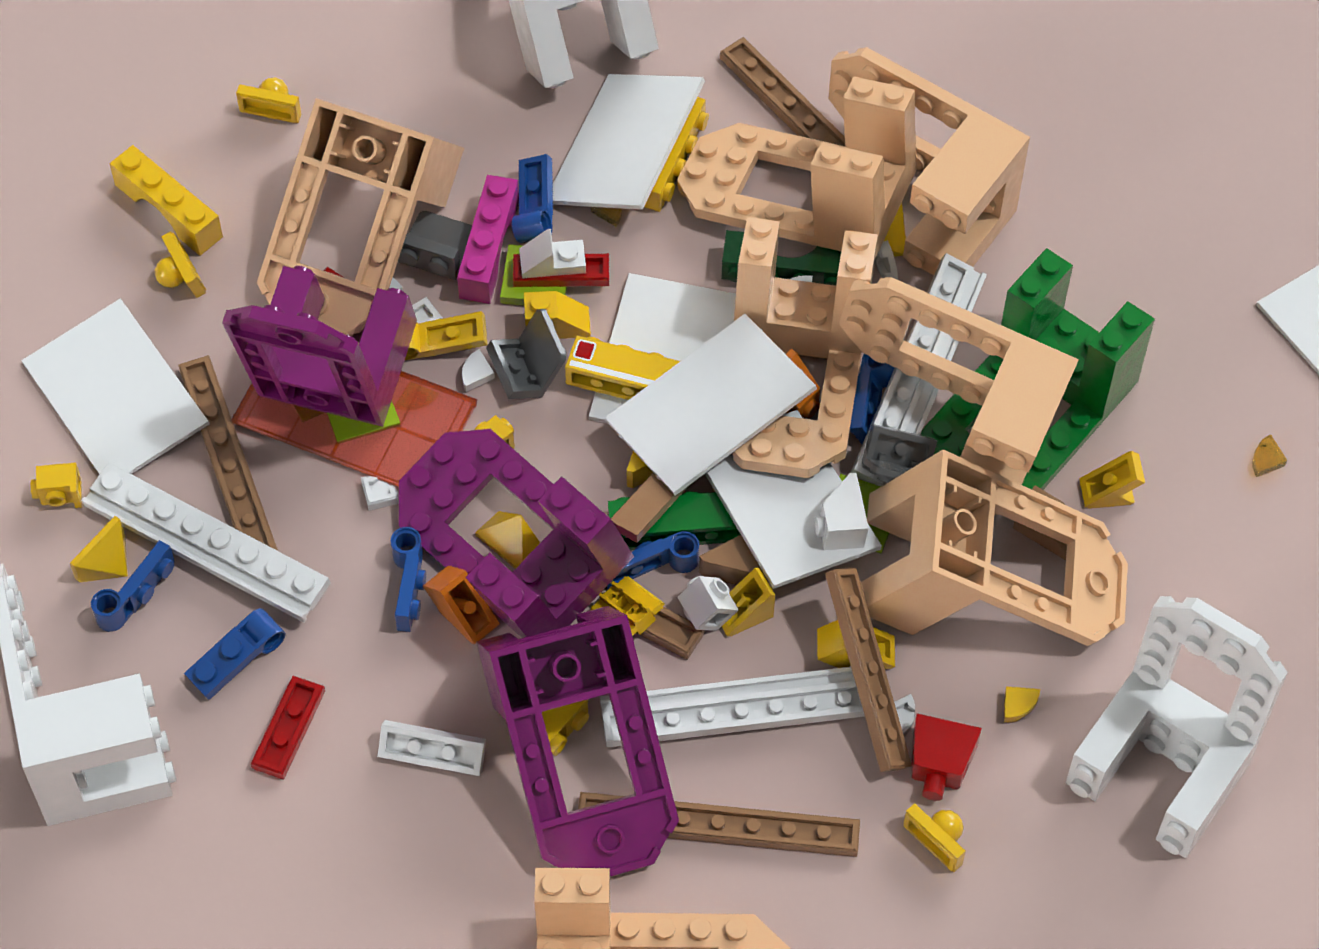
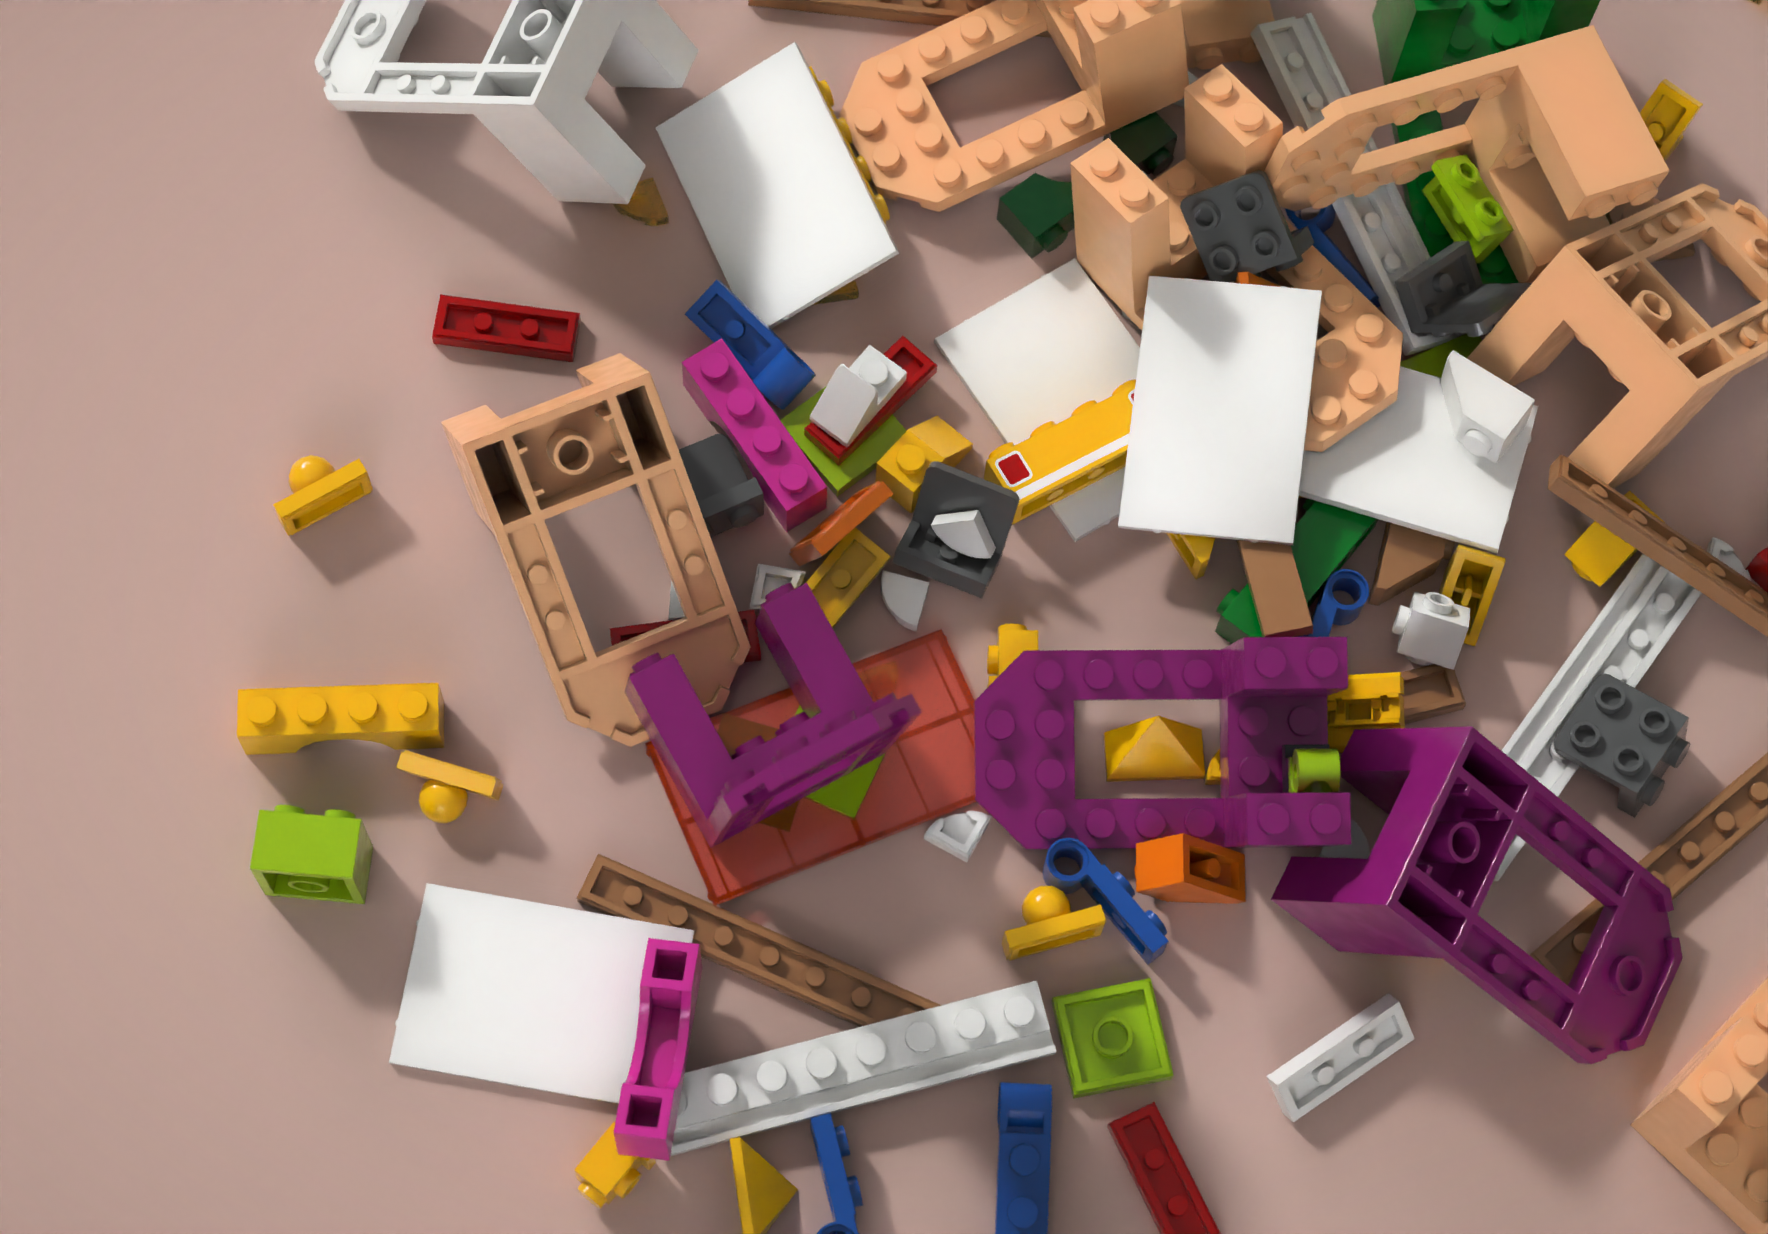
camera: 50 degrees left, 10 degrees up
(84, 240) = (312, 855): none -> lime brick
(159, 429) = (659, 1059): none -> dark pink arch
(340, 643) = (1112, 1038): none -> lime tile
(368, 566) = (1050, 924): none -> yellow tile
(436, 104) = (506, 328): none -> red tile
(492, 304) = (840, 523): none -> orange tile
(531, 361) = (965, 533): none -> white tile
(549, 586) = (1310, 769): none -> lime leg
(563, 101) = (645, 204): none -> clear yellow tile
(742, 740) = (1624, 740): none -> dark grey bracket
(813, 330) = (1242, 228): none -> dark grey bracket
(955, 419) = (1466, 205): none -> lime bracket

